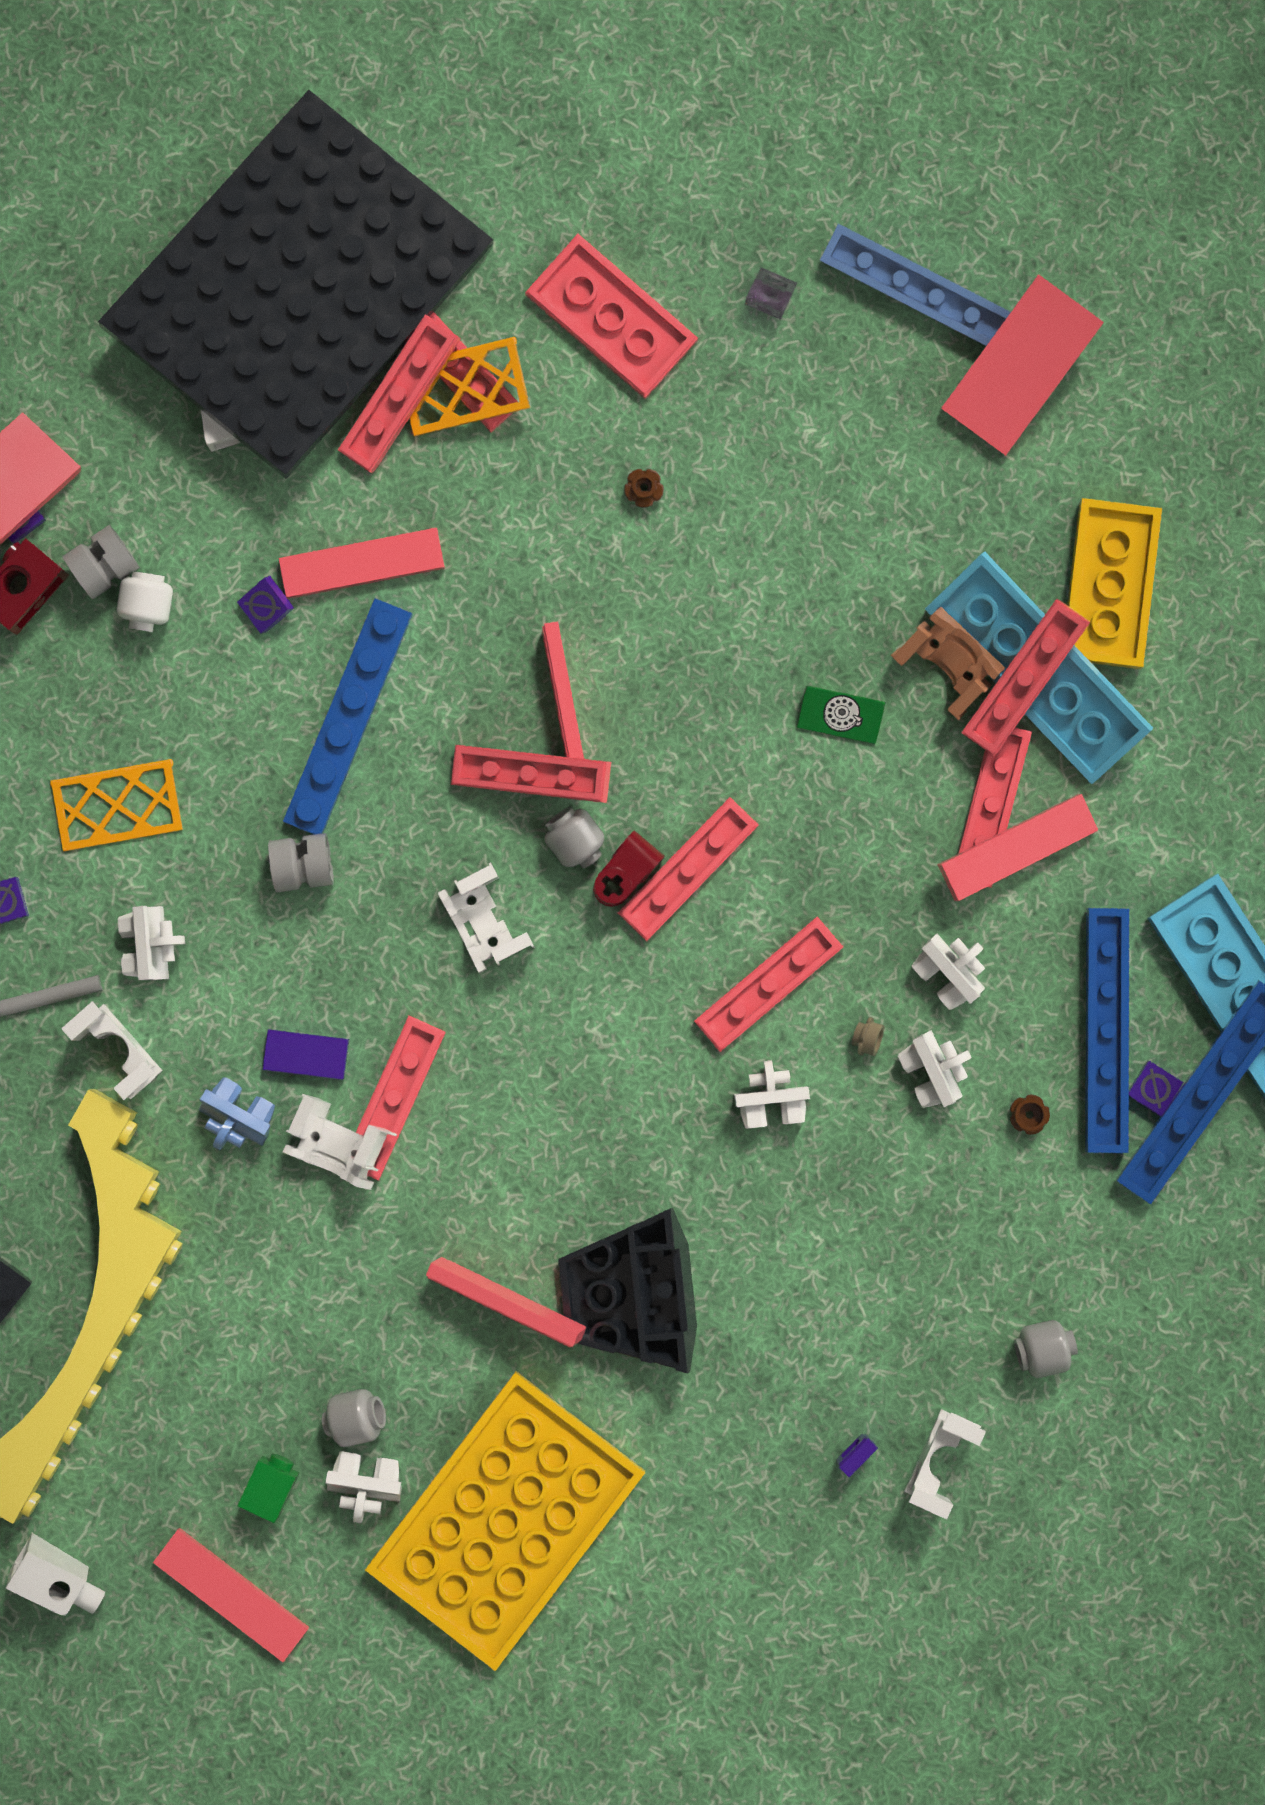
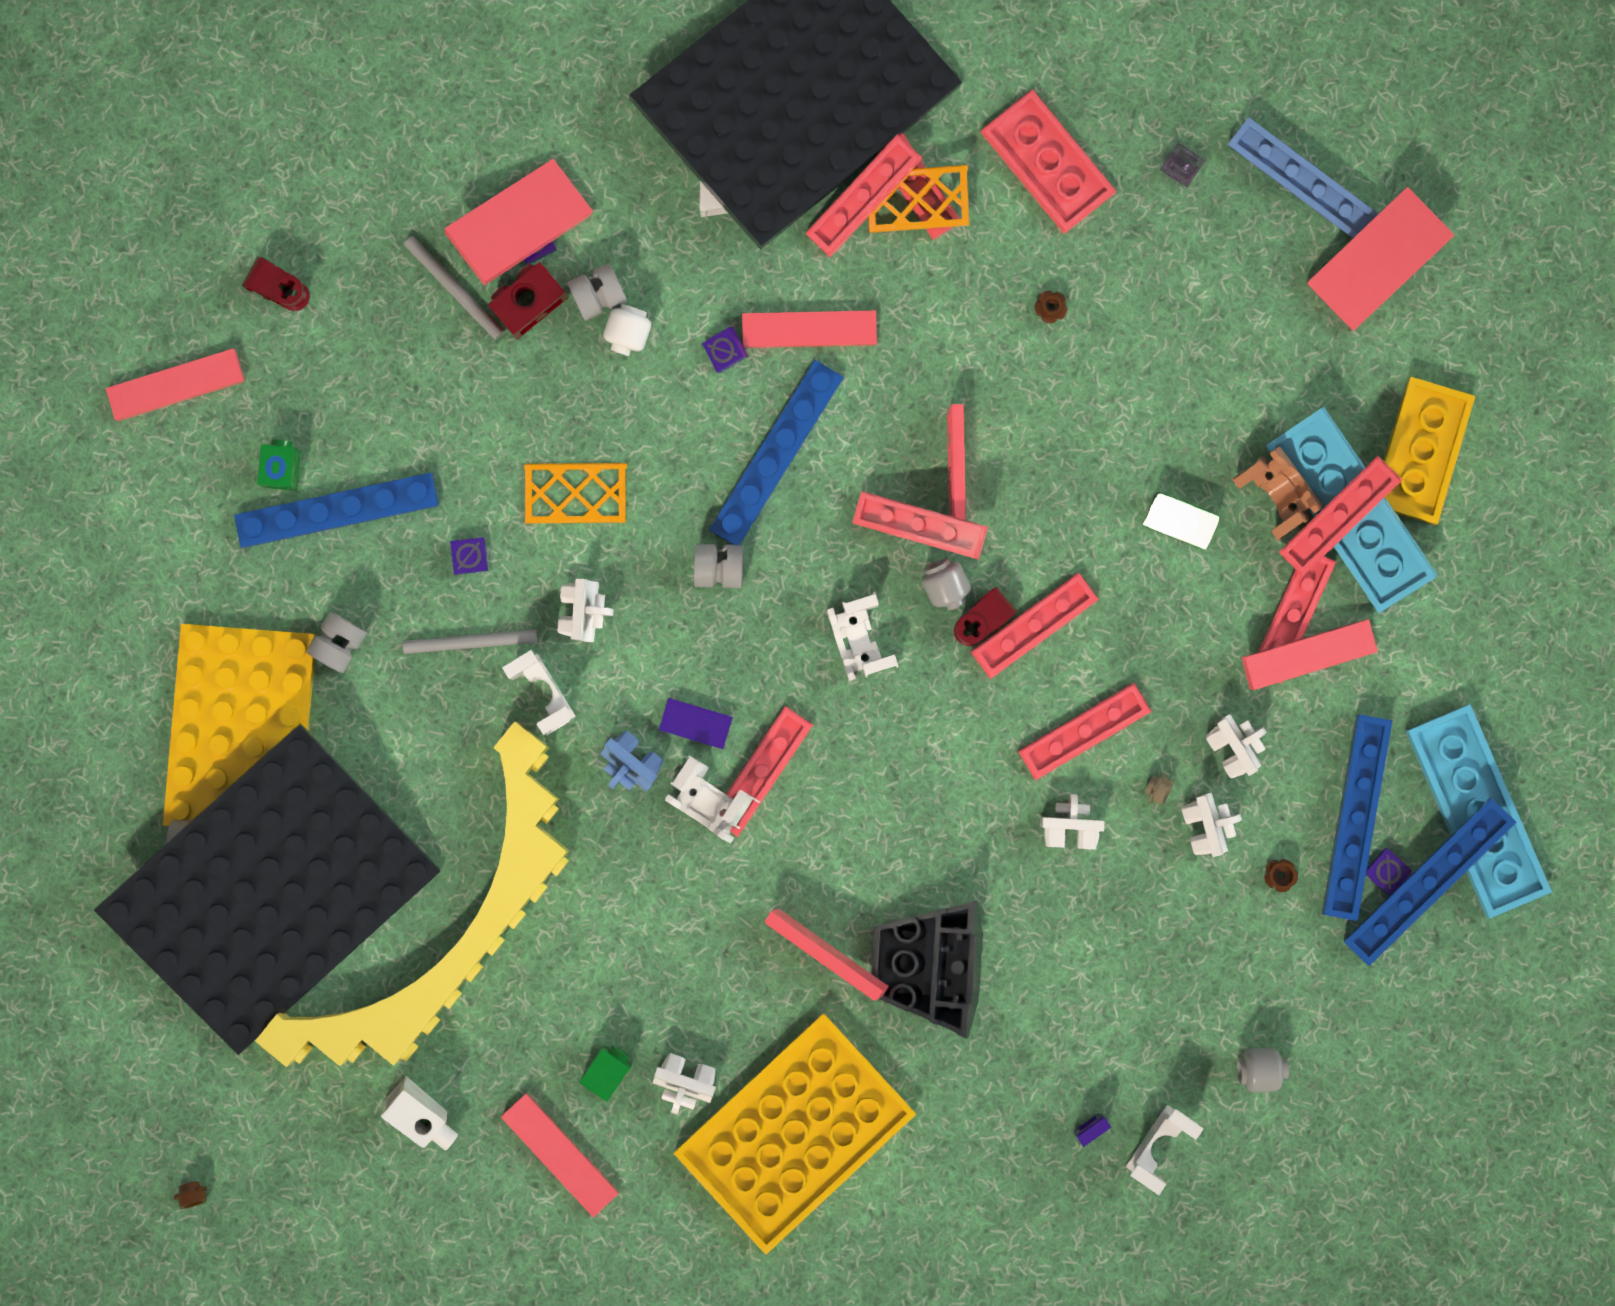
camera: 15 degrees right, 0 degrees up
(354, 1417) = (685, 1027): light grey head -> none

